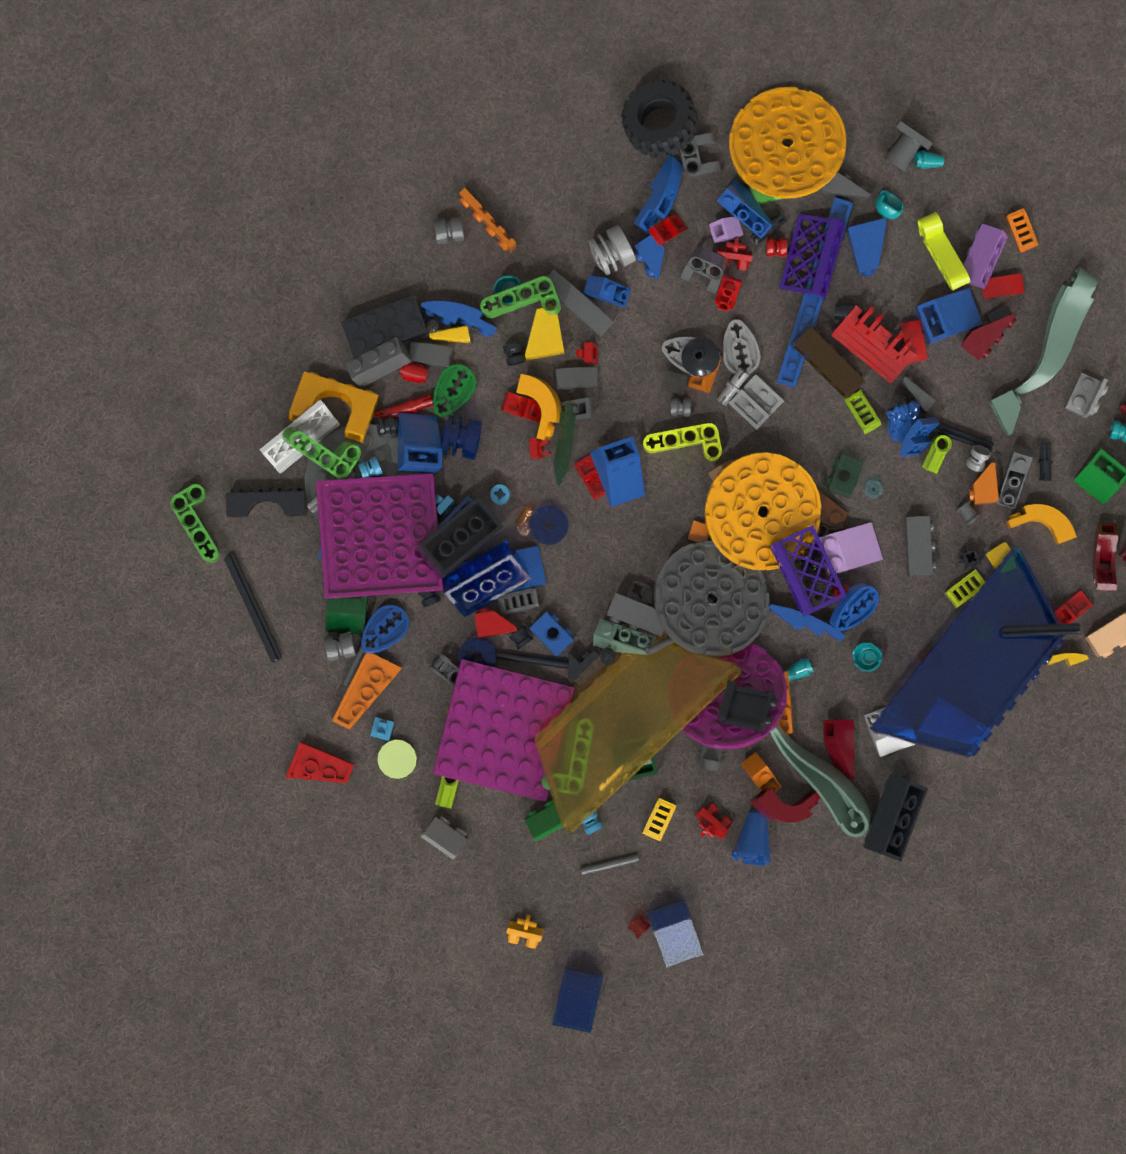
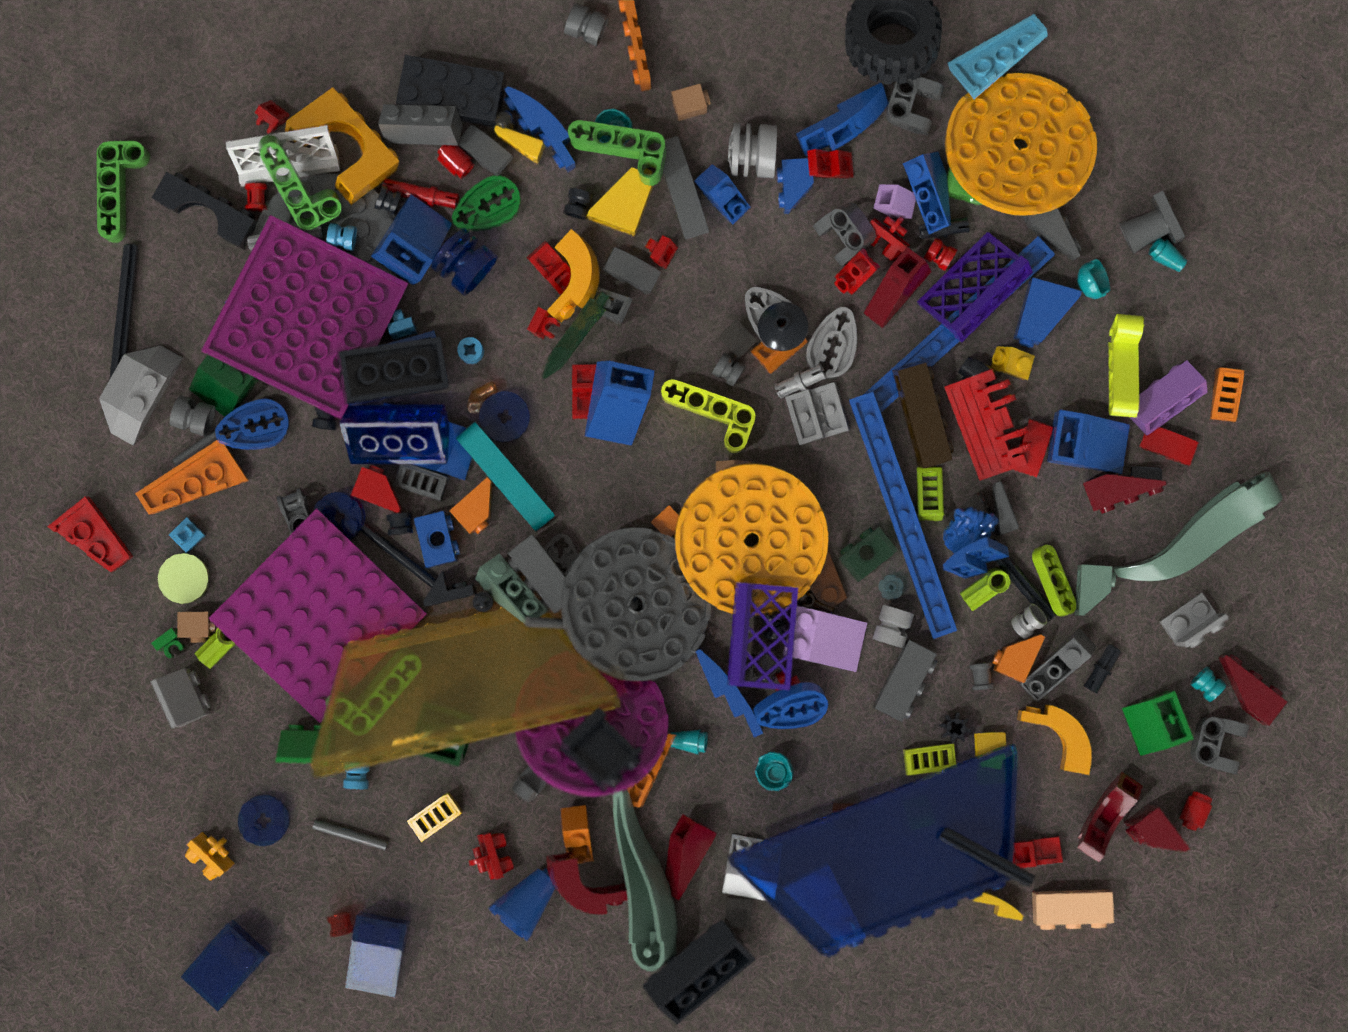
camera: 30 degrees right, 0 degrees up
(272, 413) = (271, 114): none -> red tile
(291, 651) = (137, 390): none -> light grey wedge
(294, 475) = (255, 197): none -> red bush
(412, 805) = (166, 641): none -> green tile
(425, 785) = (195, 626): none -> medium nougat brick
(544, 899) = (273, 809): none -> clear blue plate
(549, 241) = (690, 102): none -> medium nougat brick
(565, 598) = (475, 508): none -> orange slope
(573, 565) = (505, 476): none -> teal beam
(735, 94) = (993, 58): none -> medium azure wing
(760, 286) = (897, 286): none -> dark red slope
(853, 436) = (902, 515): none -> blue plate
(866, 291) = (1012, 362): none -> yellow bracket
(890, 514) = (893, 626): none -> light grey wheel
(992, 426) = (1056, 600): none -> lime beam

